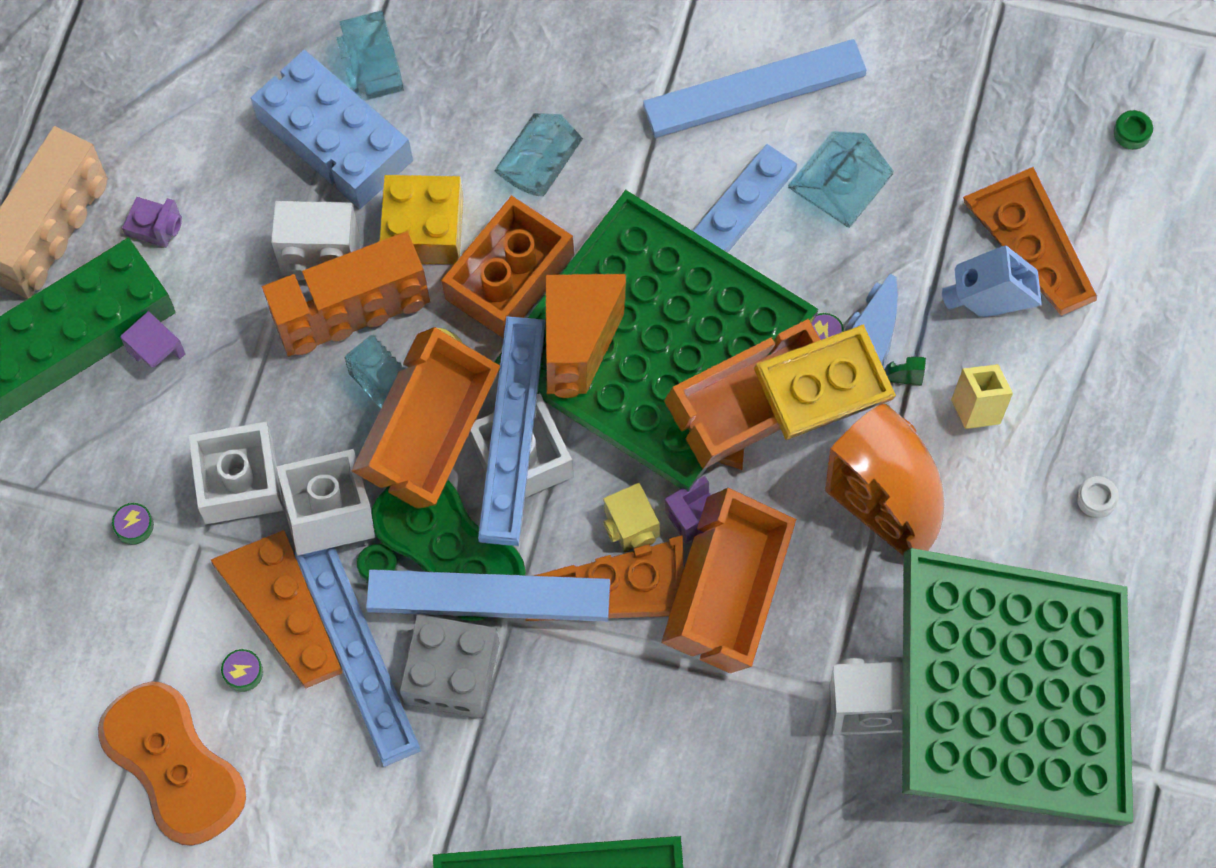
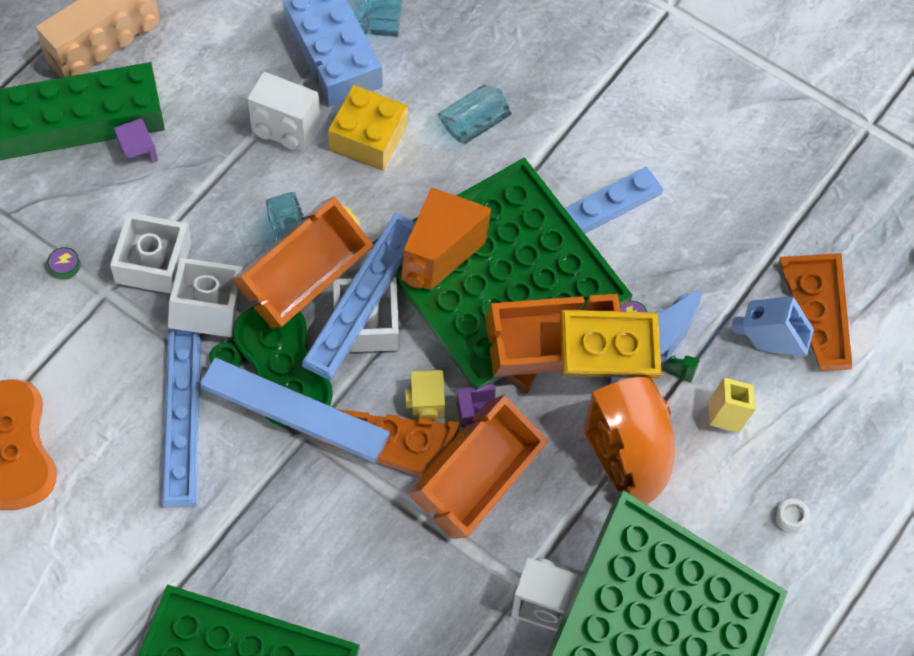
camera: 15 degrees right, 5 degrees down
(153, 221) = (177, 61): medium lavender bracket -> none
(242, 670) = (92, 396): tile -> none
(277, 597) = (141, 353): orange wing -> none
(348, 294) = (289, 158): orange piece -> none
(450, 666) = (243, 451): light grey piece -> none
(508, 266) = (406, 177): orange brick -> none
(754, 88) = (655, 125): light blue tile -> none
(843, 176) = (694, 210): clear light blue slope -> none

